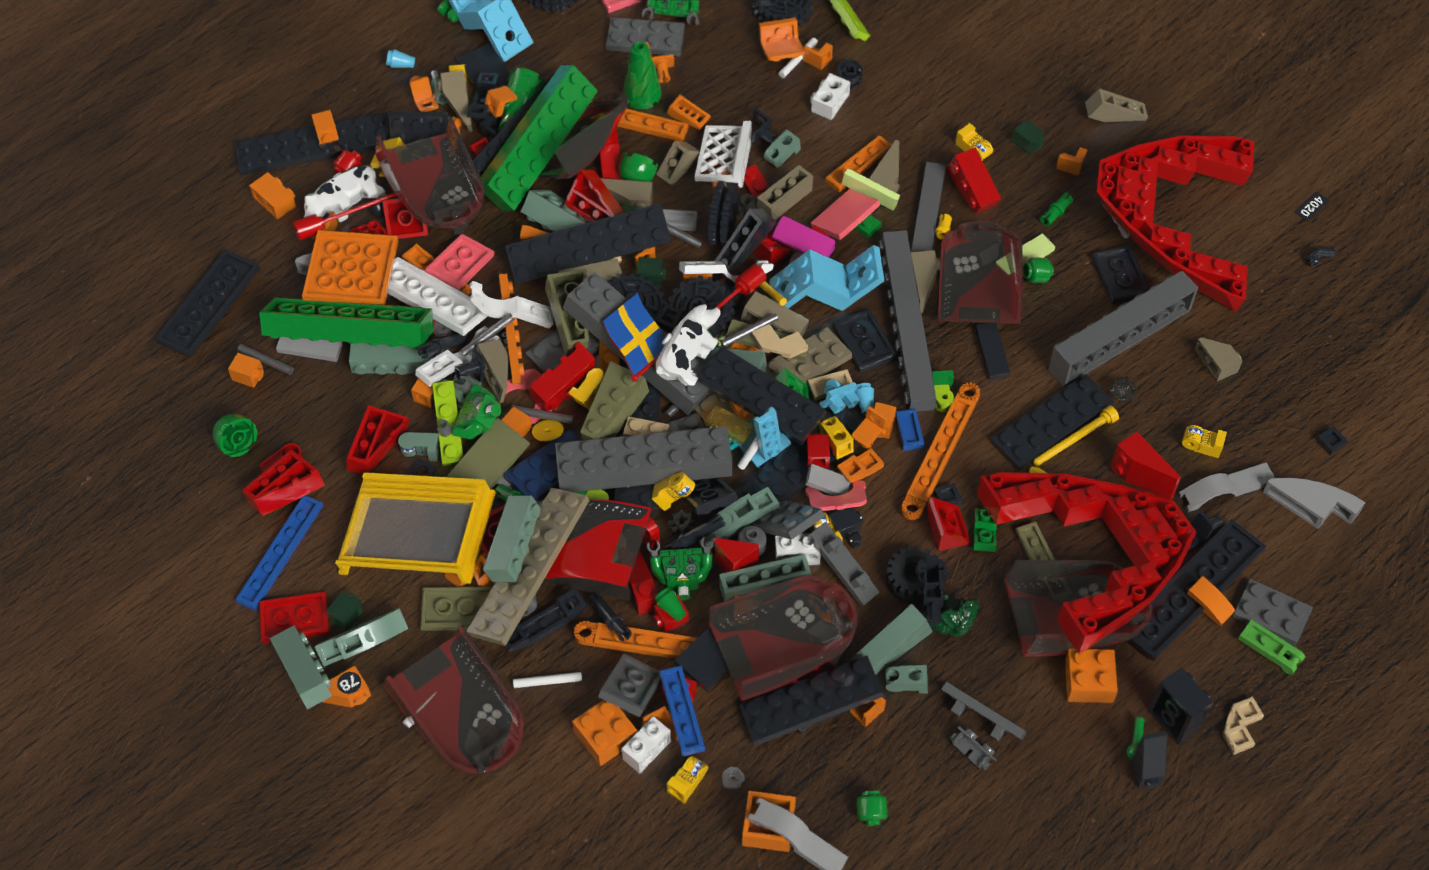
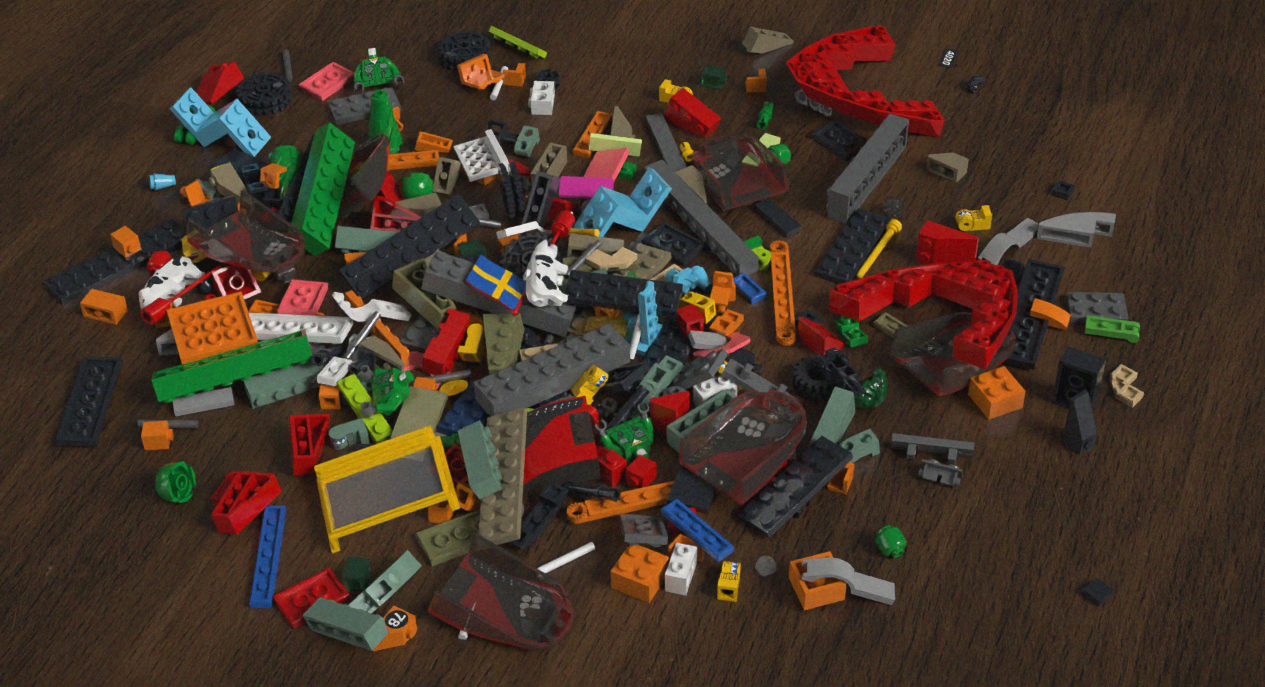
camera: 25 degrees left, 15 degrees down
(669, 602) = (639, 459): green cone -> none
(1137, 735) = (1059, 427): green bar -> none

